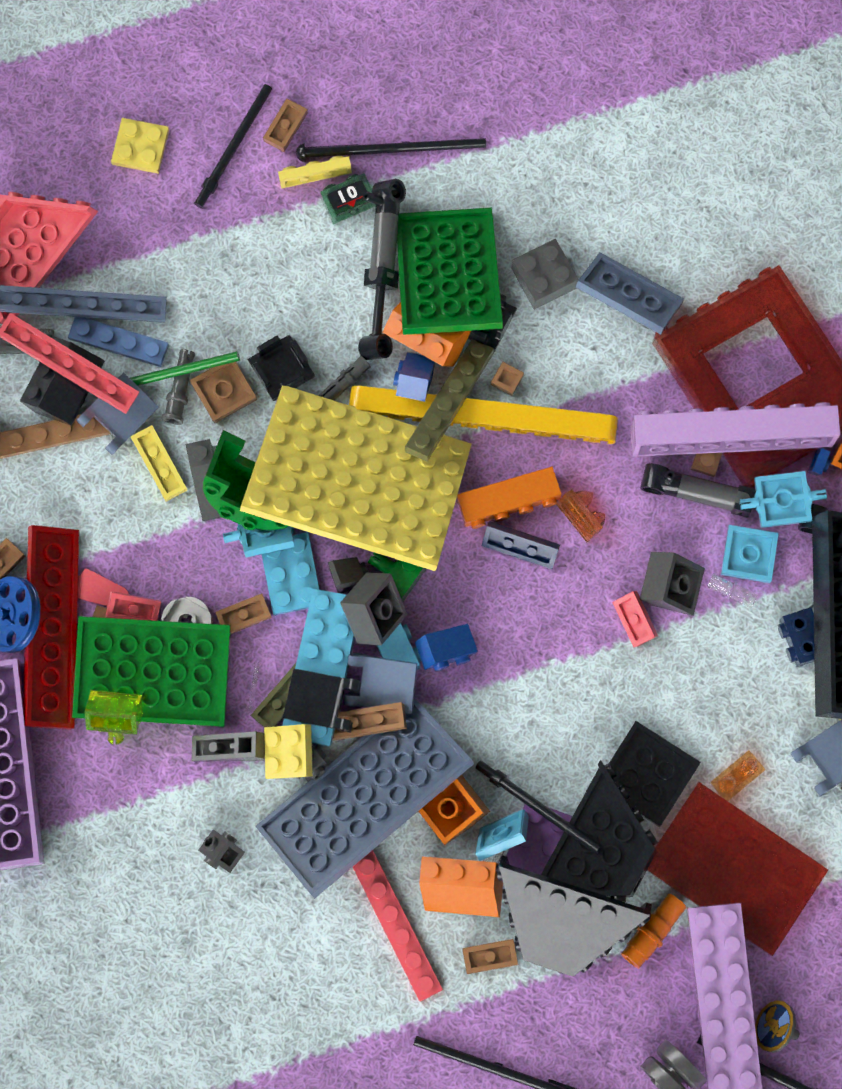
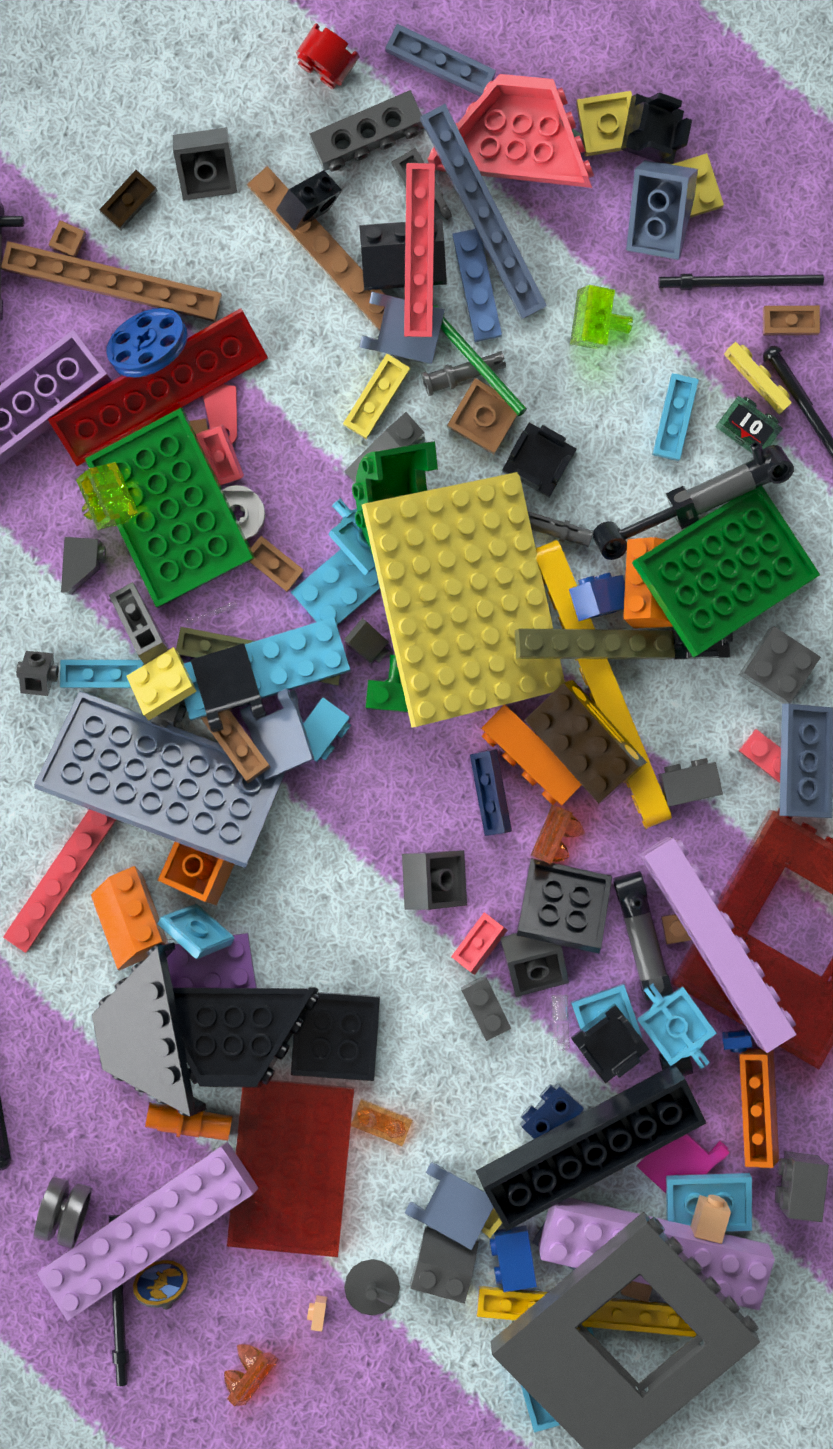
camera: 60 degrees right, 10 degrees up
(54, 175) = (603, 122): none -> light yellow plate
(80, 143) = (655, 128): none -> black panel
(144, 172) = (660, 208): none -> sand blue slope
(152, 766) = (80, 562): none -> dark grey slope
(197, 265) = (595, 318): none -> clear neon green brick
(250, 802) = (97, 673): none -> medium azure plate
(308, 248) = (675, 417): none -> medium azure plate
(374, 608) = (343, 687): dark grey brick -> none
(446, 647) = (348, 777): blue brick -> none
(490, 956) = (80, 979): medium nougat plate -> none
(500, 779) = (251, 897): black bar -> none
(507, 378) = (651, 687): medium nougat plate -> none
(521, 447) = (585, 741): none -> dark brown brick
(565, 627) = (434, 880): none -> dark grey slope
(599, 387) = (690, 783): none -> dark grey brick
(607, 323) = (763, 753): none -> coral plate
(641, 534) = (564, 906): none -> black plate
(689, 641) = (485, 1008): none -> dark grey brick
(770, 558) = (610, 1044): none -> black panel

